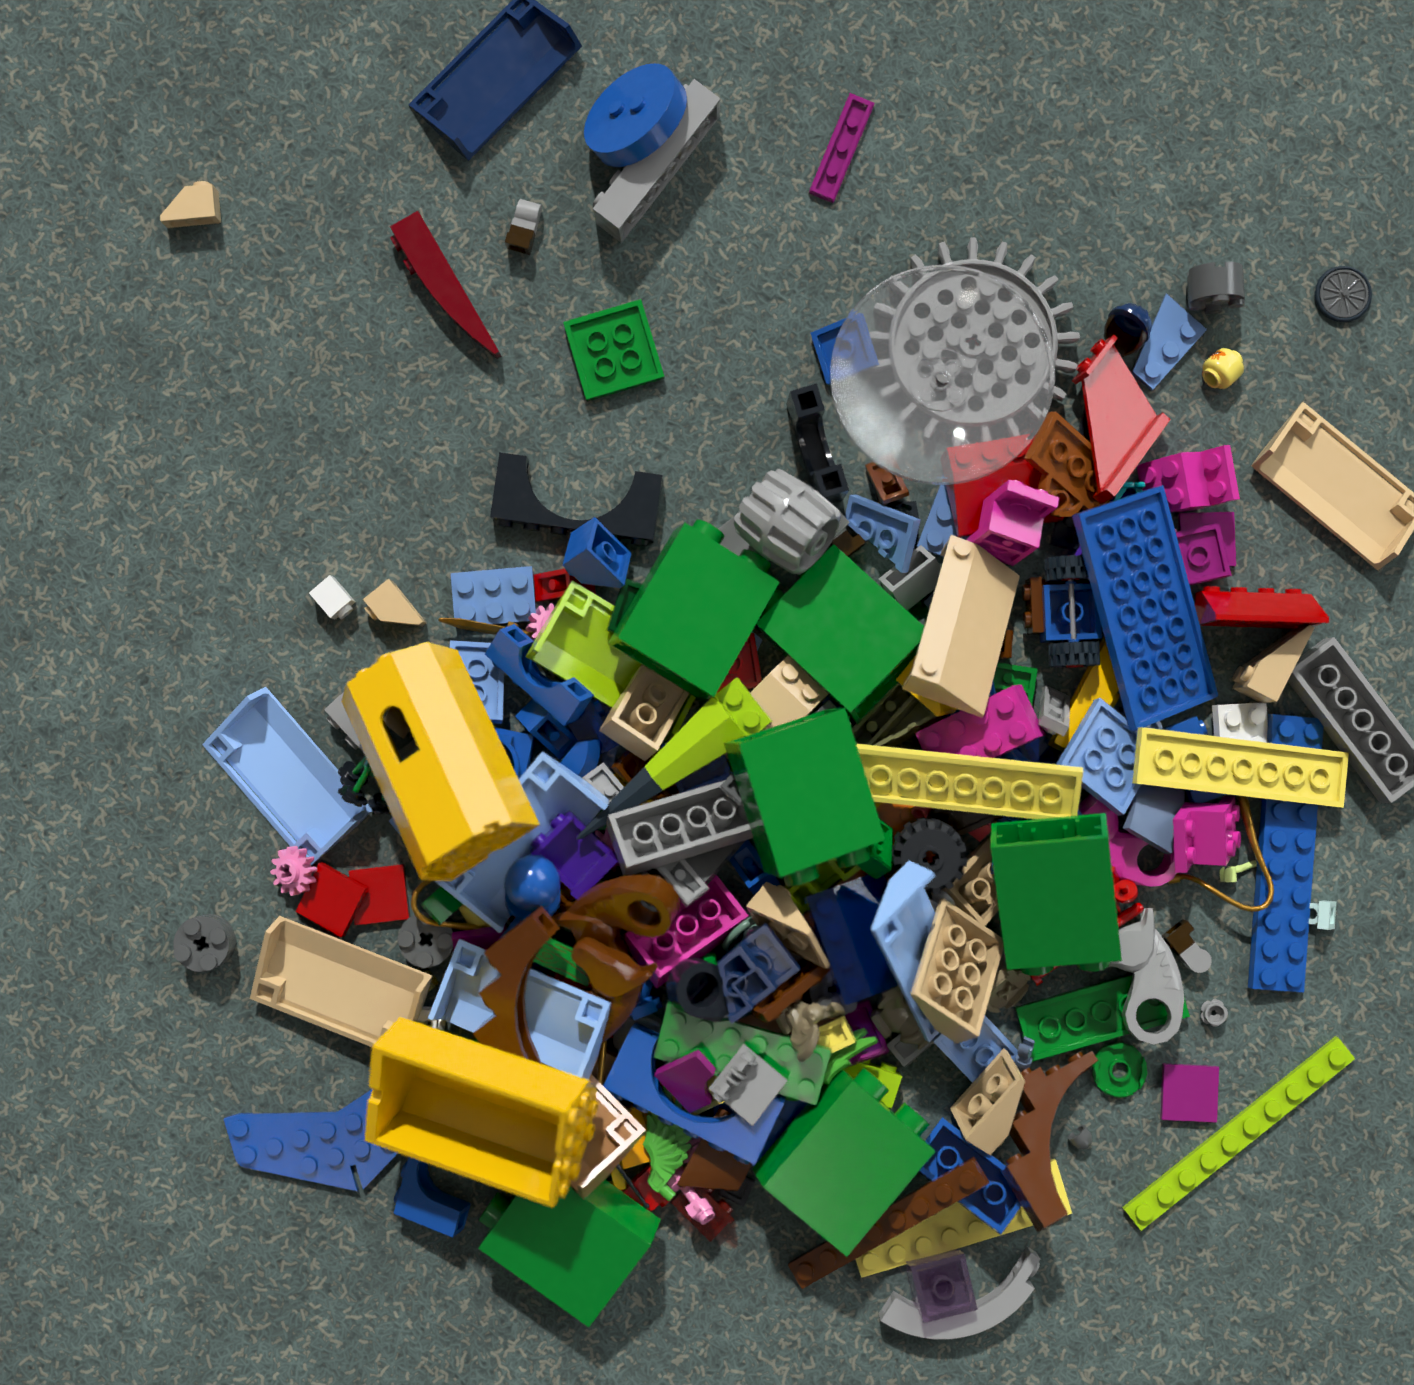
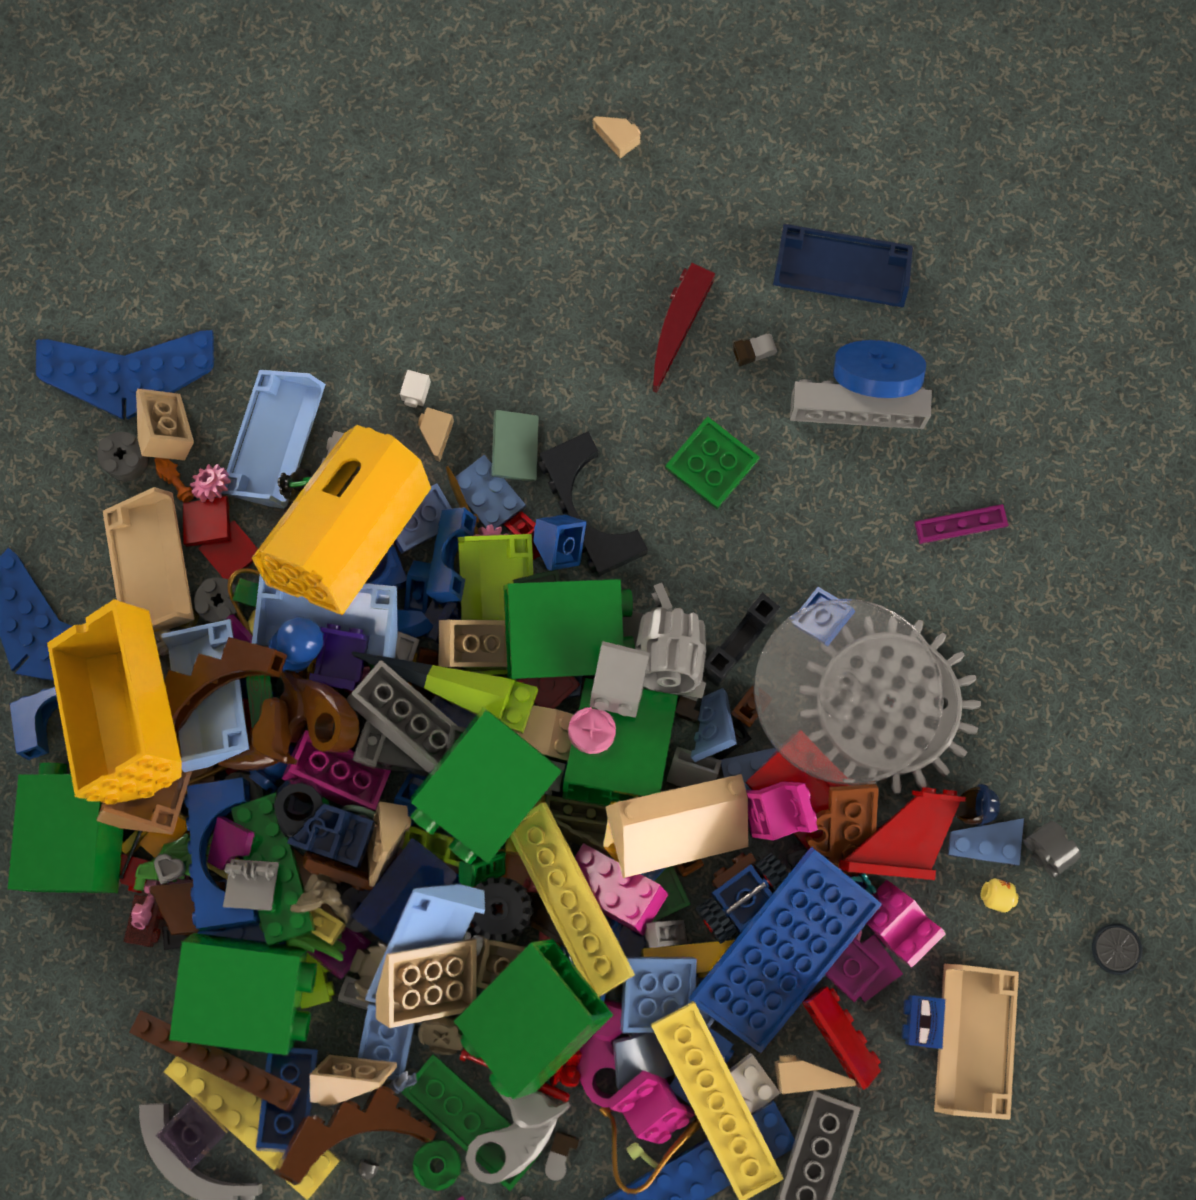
camera: 60 degrees right, 10 degrees down
(126, 873) = (111, 378): none -> blue wing
(198, 881) = (162, 425): none -> tan slope
(250, 905) = (167, 470): none -> orange piece
(463, 536) = (515, 446): none -> sand green tile
(672, 1155) = (168, 868): none -> light grey tile
(717, 495) = (660, 597): none -> light grey bracket
(788, 591) = (619, 679): none -> light grey slope
(816, 652) = (591, 730): none -> bright pink tile
(1293, 521) = (924, 1021): none -> blue slope

